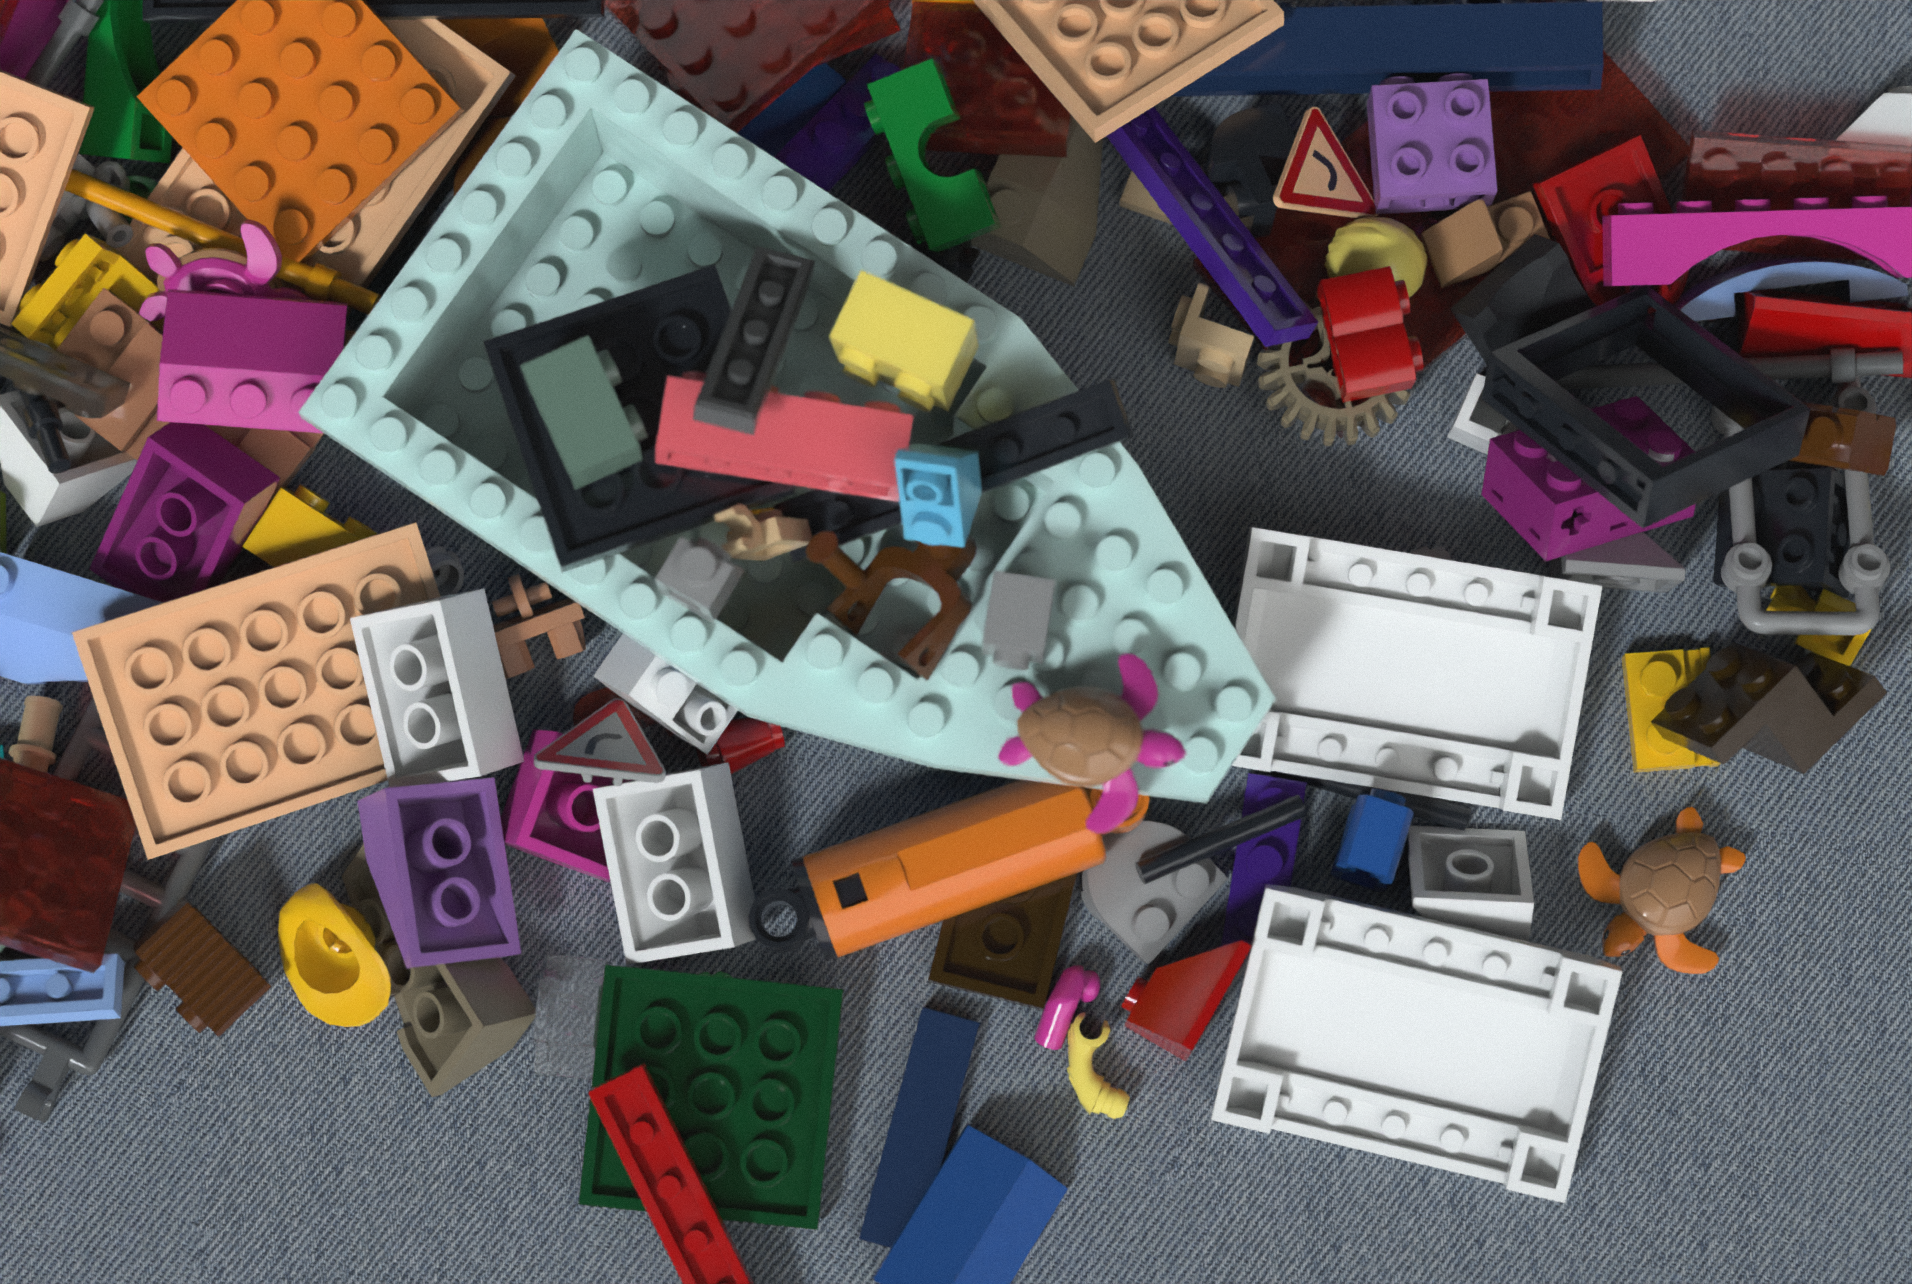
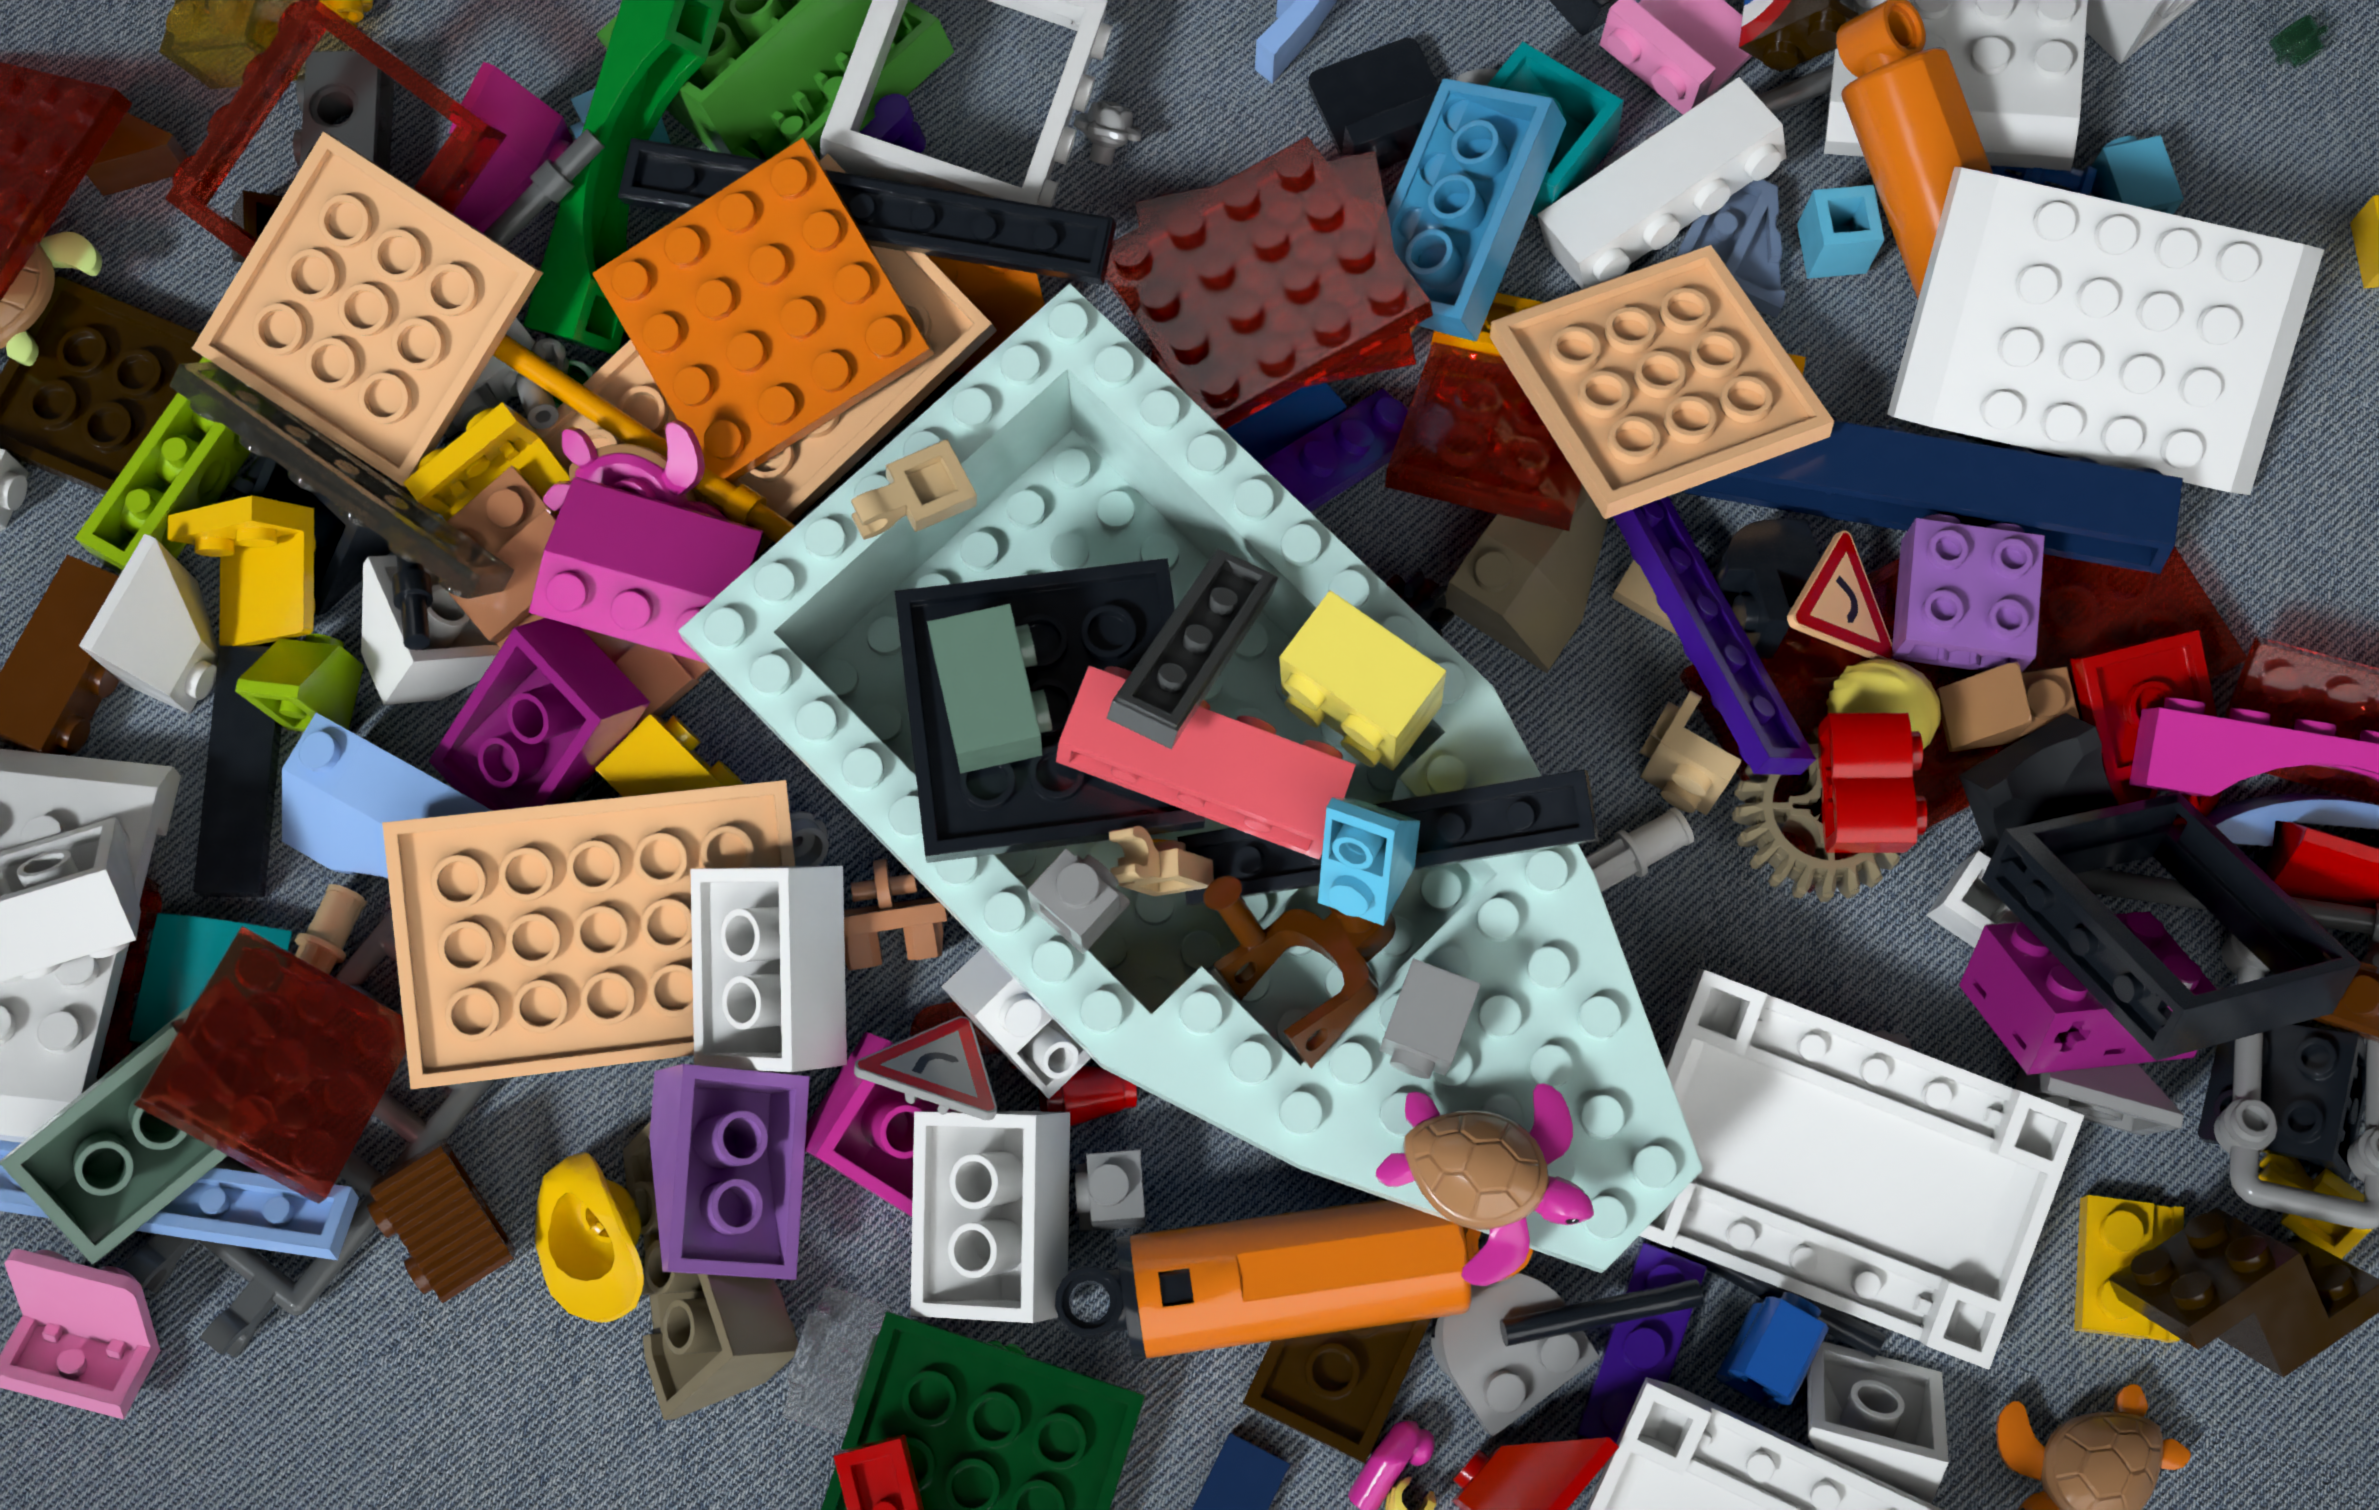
camera: 10 degrees right, 5 degrees down
(486, 243) = (922, 487): none -> tan plate
(777, 823) = (1110, 1191): none -> light grey brick
(909, 111) = (1411, 444): green arch -> none
(1180, 433) = (1640, 848): none -> white axle

